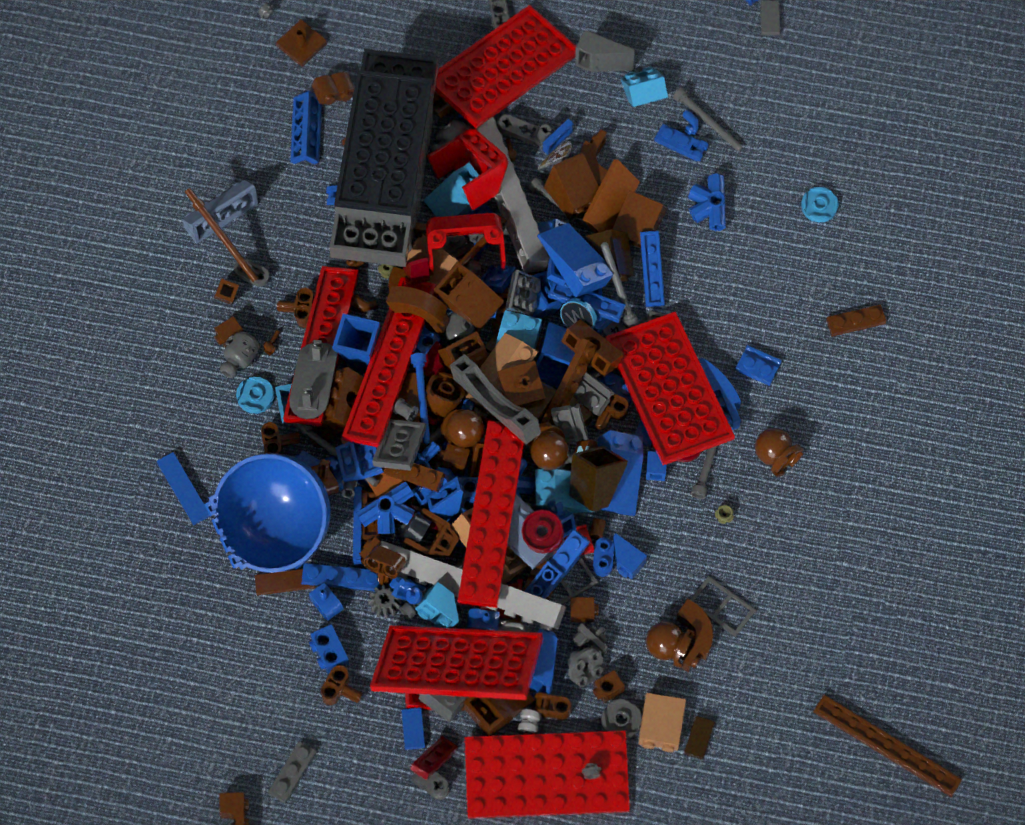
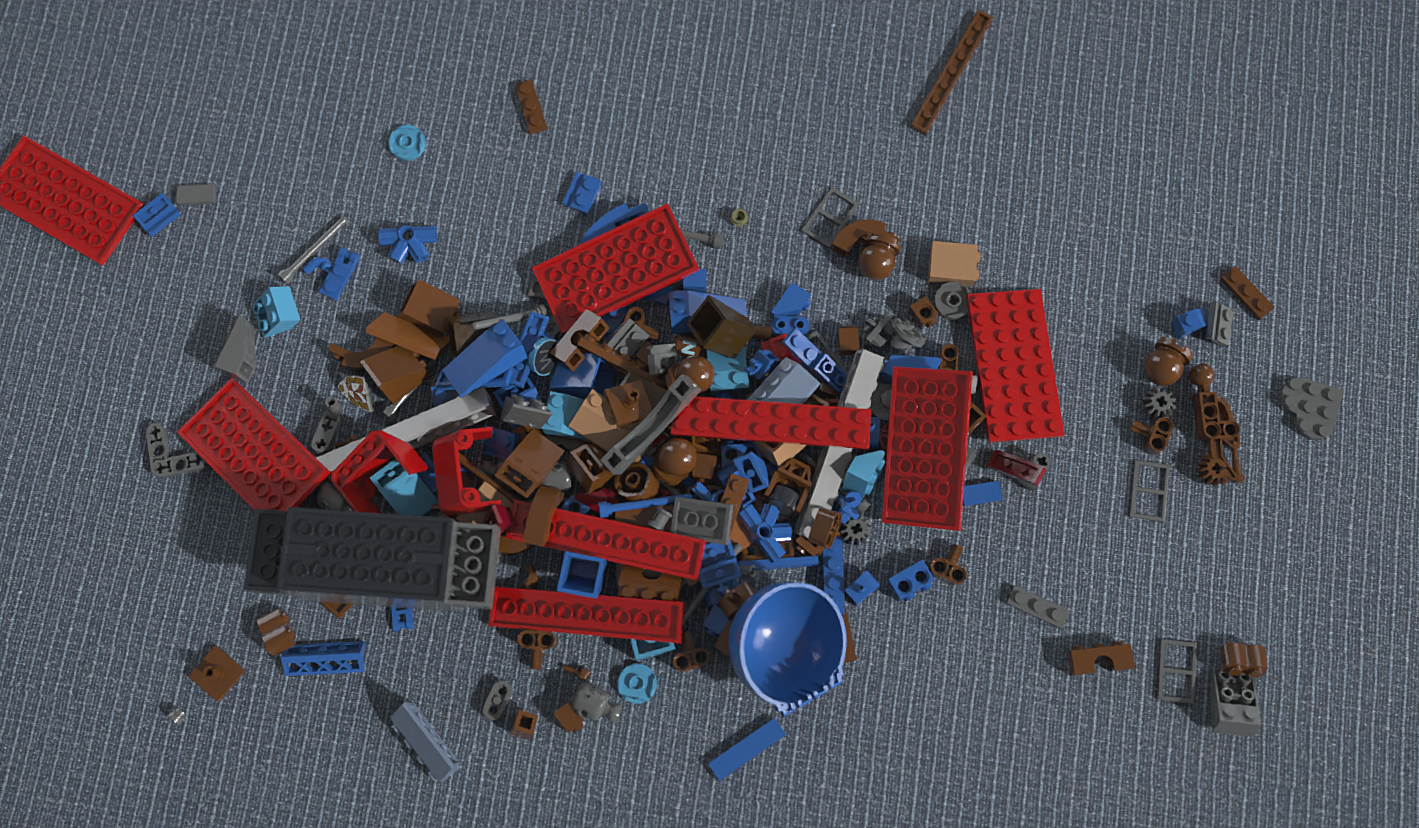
camera: 90 degrees left, 10 degrees up
(199, 206) = (432, 759): reddish brown bar -> none
(313, 380) = (632, 616): dark grey piece -> none
(539, 520) = (798, 366): dark red wheel -> none
(558, 136) = (333, 392): blue tile -> none
(591, 771) = (1014, 320): dark grey plate -> none
(652, 269) = (484, 292): blue tile -> none
(699, 737) = (962, 231): dark brown tile -> none
(776, 449) = (673, 169): reddish brown tile -> none

